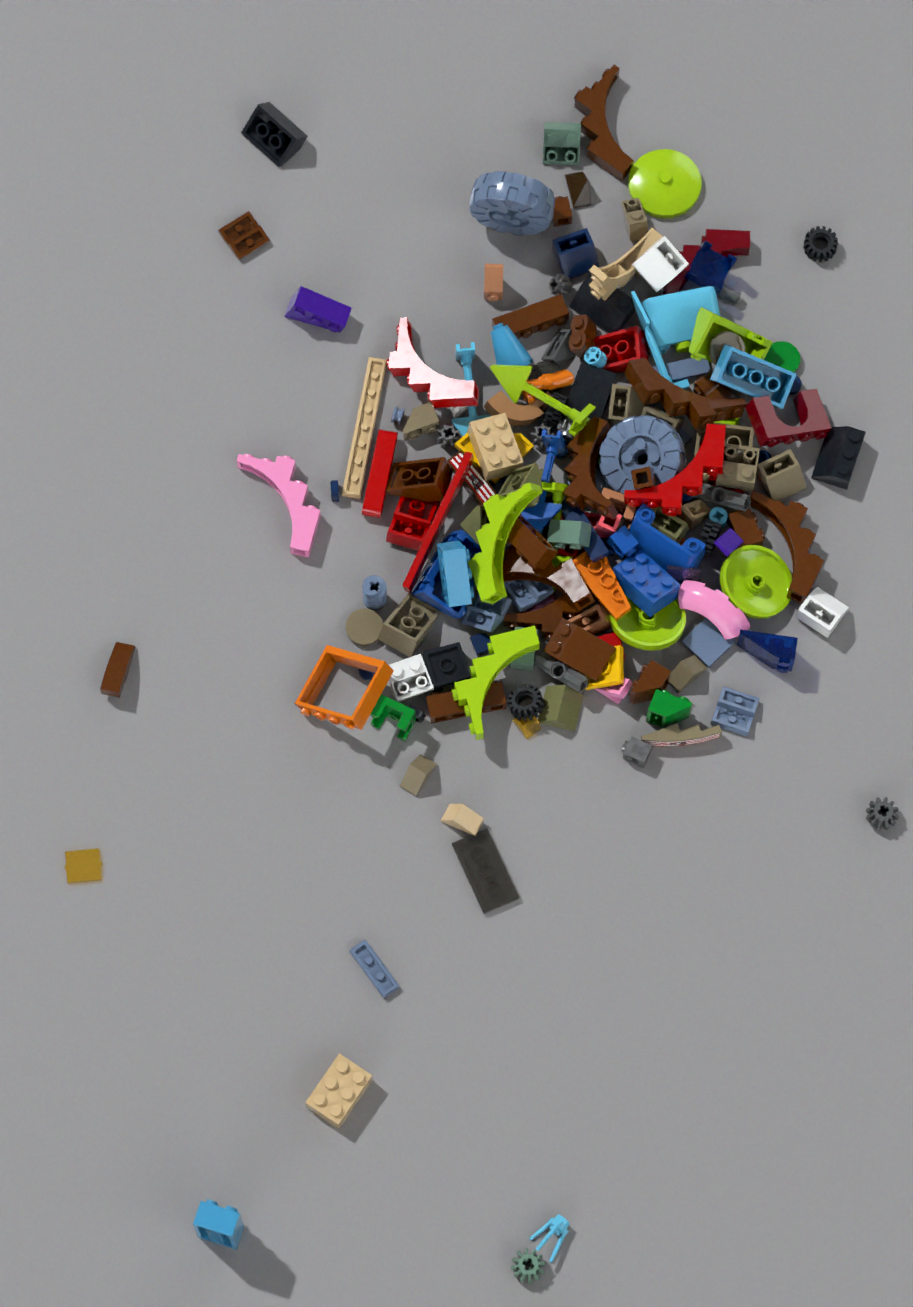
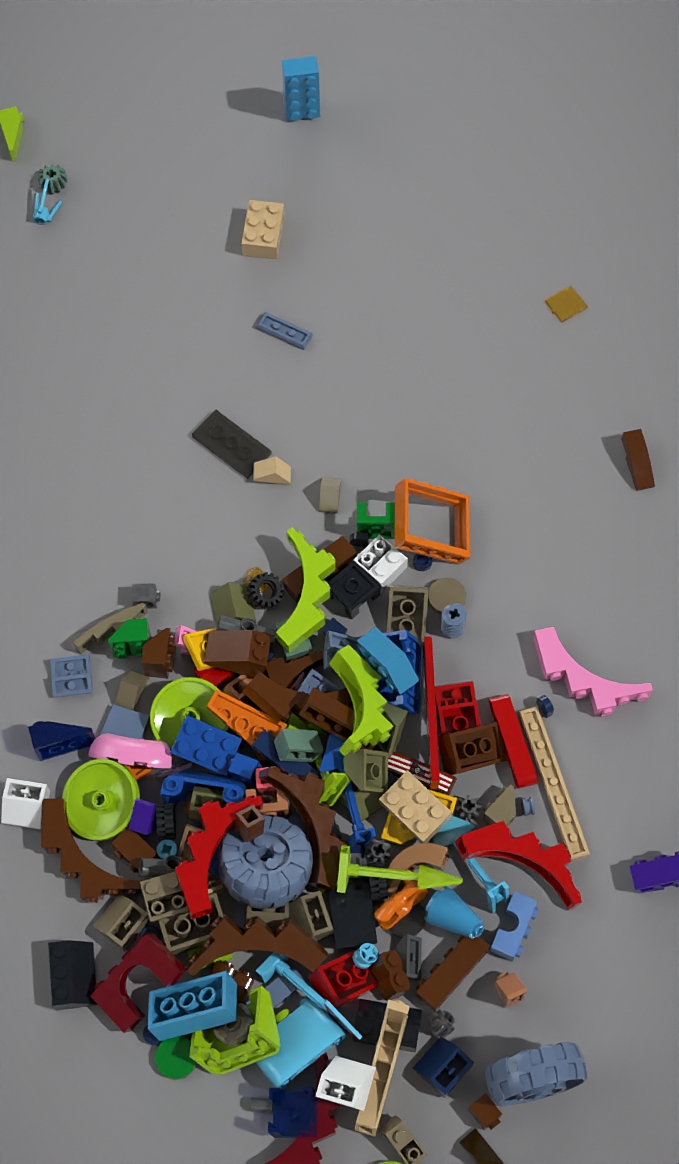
camera: 155 degrees right, 5 degrees down
(473, 319) = (508, 943): none -> medium blue arch

